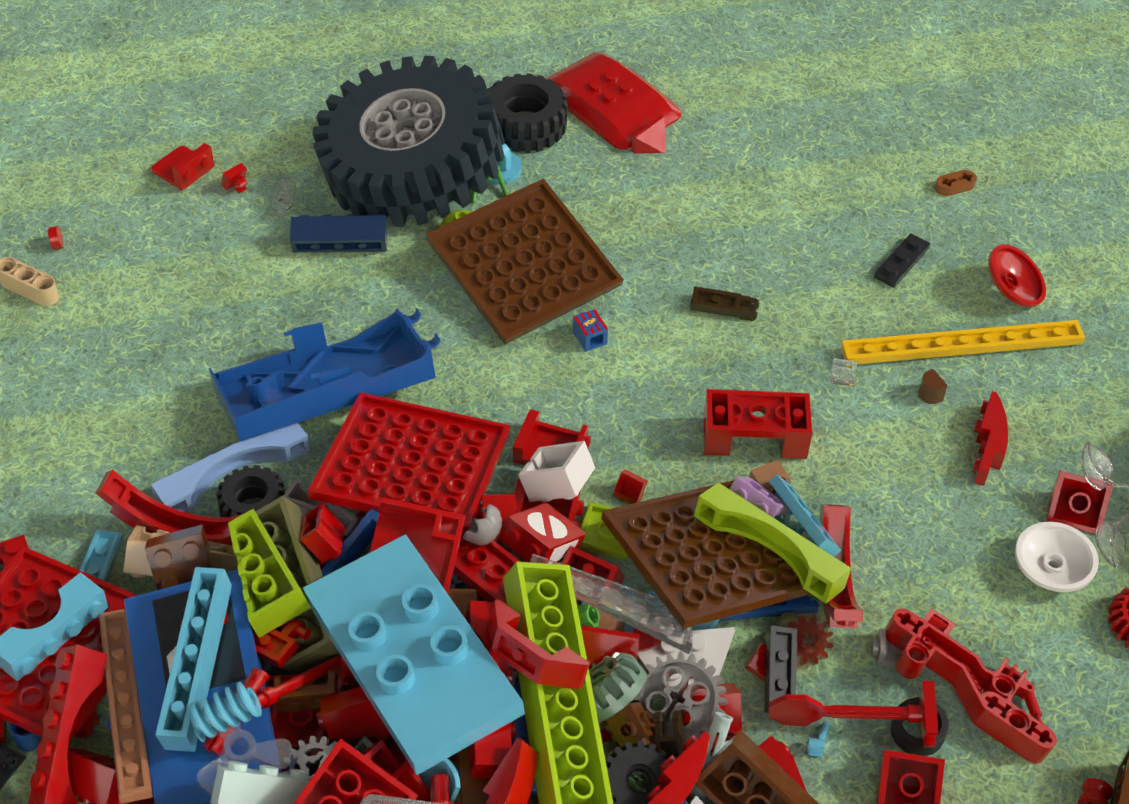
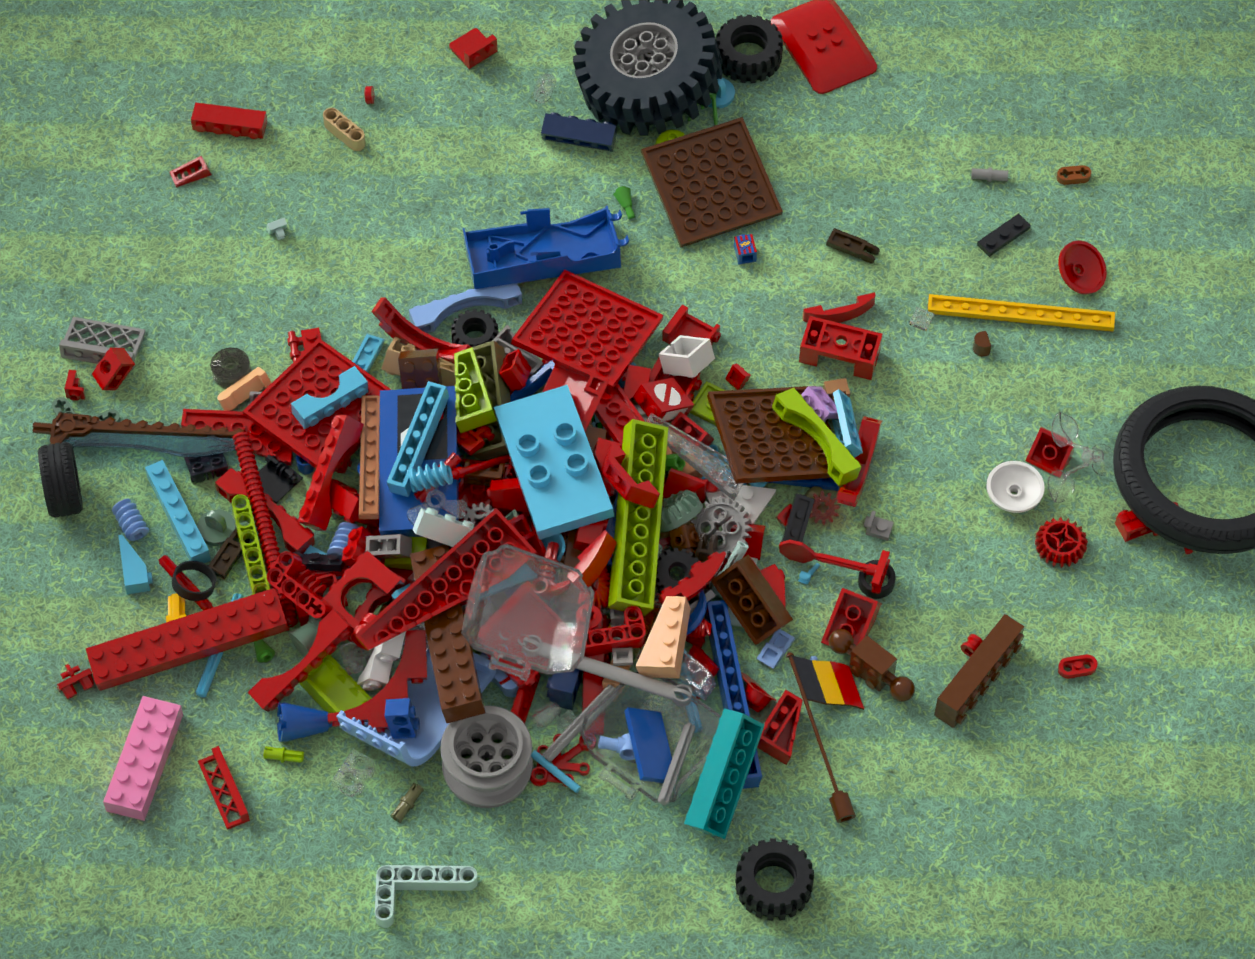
camera: 15 degrees right, 10 degrees up
(235, 178) = (511, 67): red tile -> none
(415, 298) = (623, 196): none -> bright green cone
(486, 529) = (623, 389): light grey hair -> none
(650, 138) = (843, 89): slope -> none
(747, 380) = (843, 313): none -> red slope
(858, 198) = (989, 174): none -> light grey pin
(982, 692) = (902, 528): red beam -> none
(992, 437) = (1009, 392): red slope -> none

